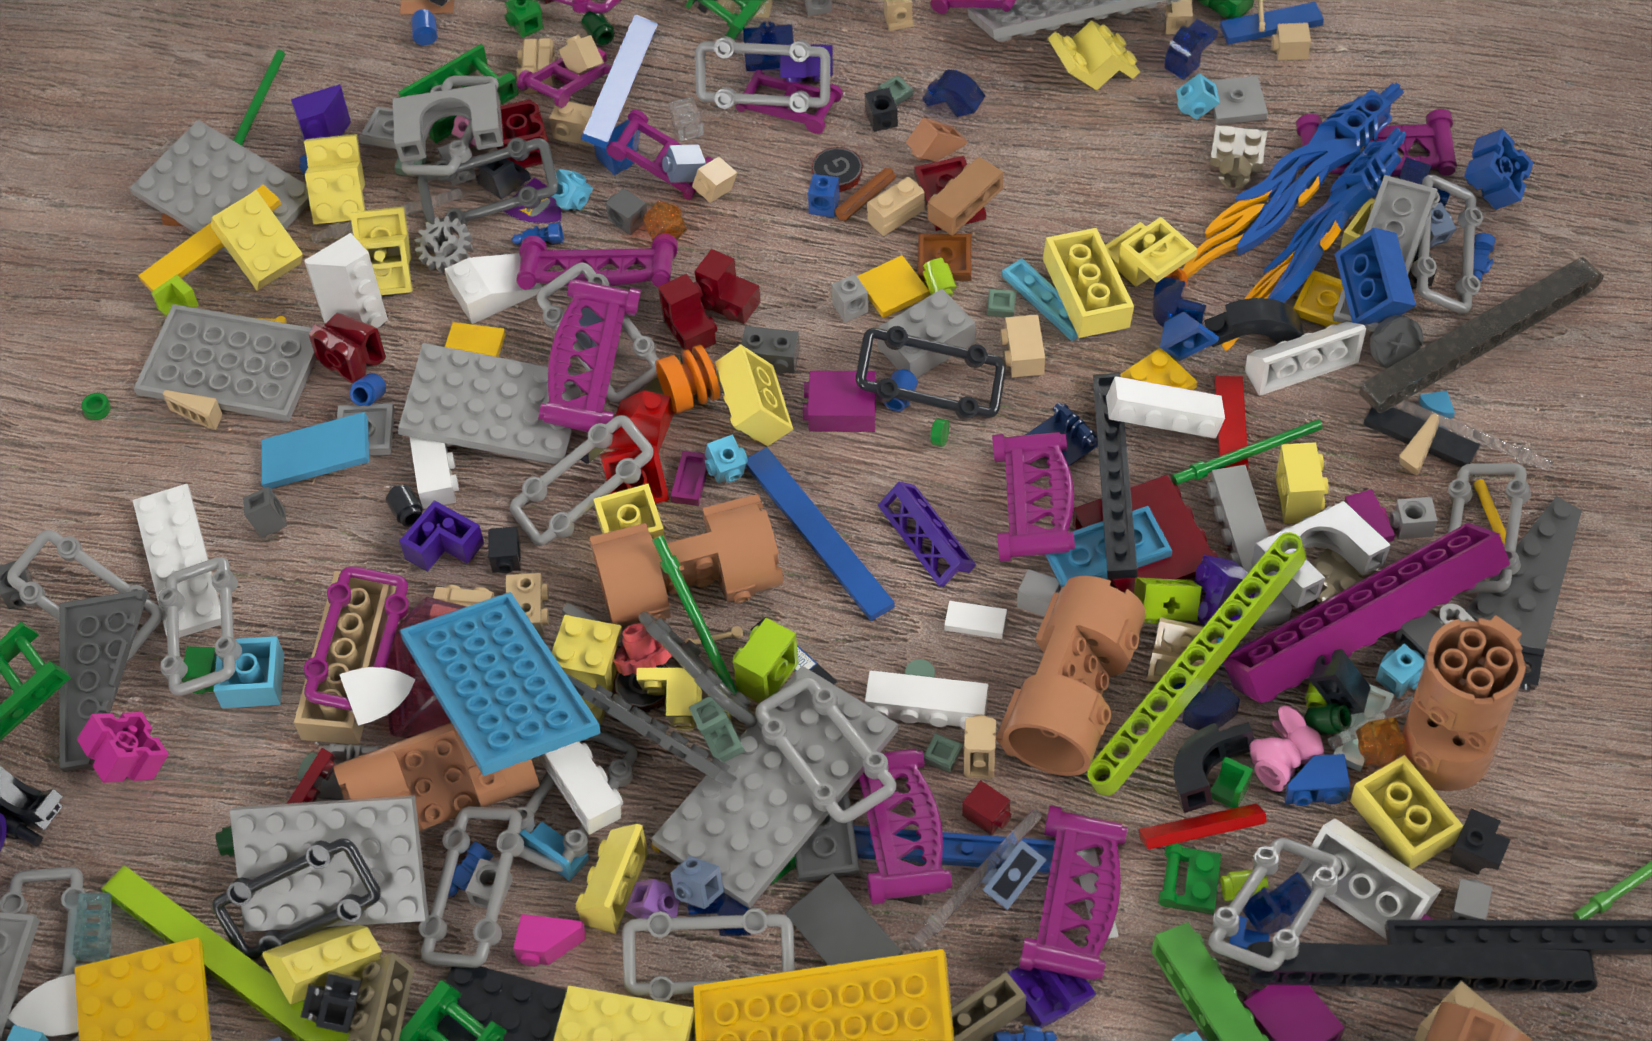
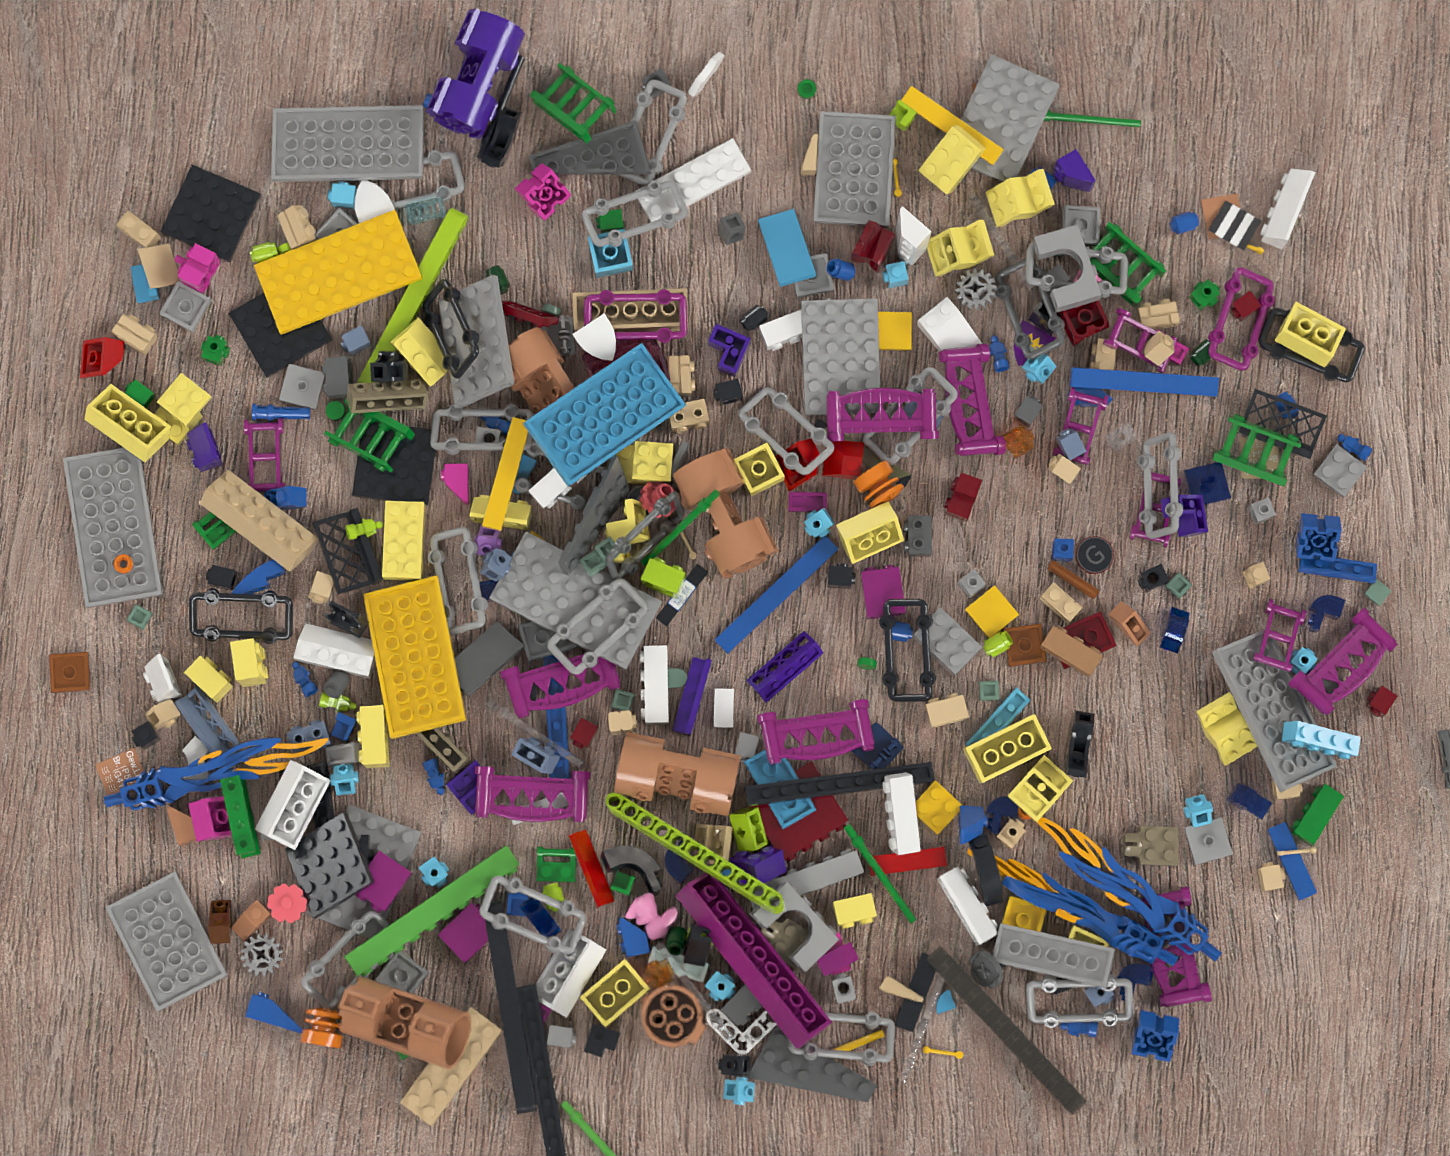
camera: 75 degrees right, 25 degrees up
(23, 513) = (707, 72): none -> white tile
(395, 329) = (895, 274): none -> medium azure brick
(555, 843) = (506, 475): none -> yellow tile
(686, 314) = (937, 472): dark red brick -> none
(808, 448) = (841, 576): none -> black brick
(951, 654) = (692, 696): none -> dark purple fence
(1091, 211) = (1079, 744): none -> black arch
(1208, 294) = (1004, 836): none -> tan brick
(1375, 277) = (1025, 948): blue slope -> none
(1512, 400) = (958, 1054): none -> yellow hinge
(1564, 674) = (739, 1090): none -> medium azure brick

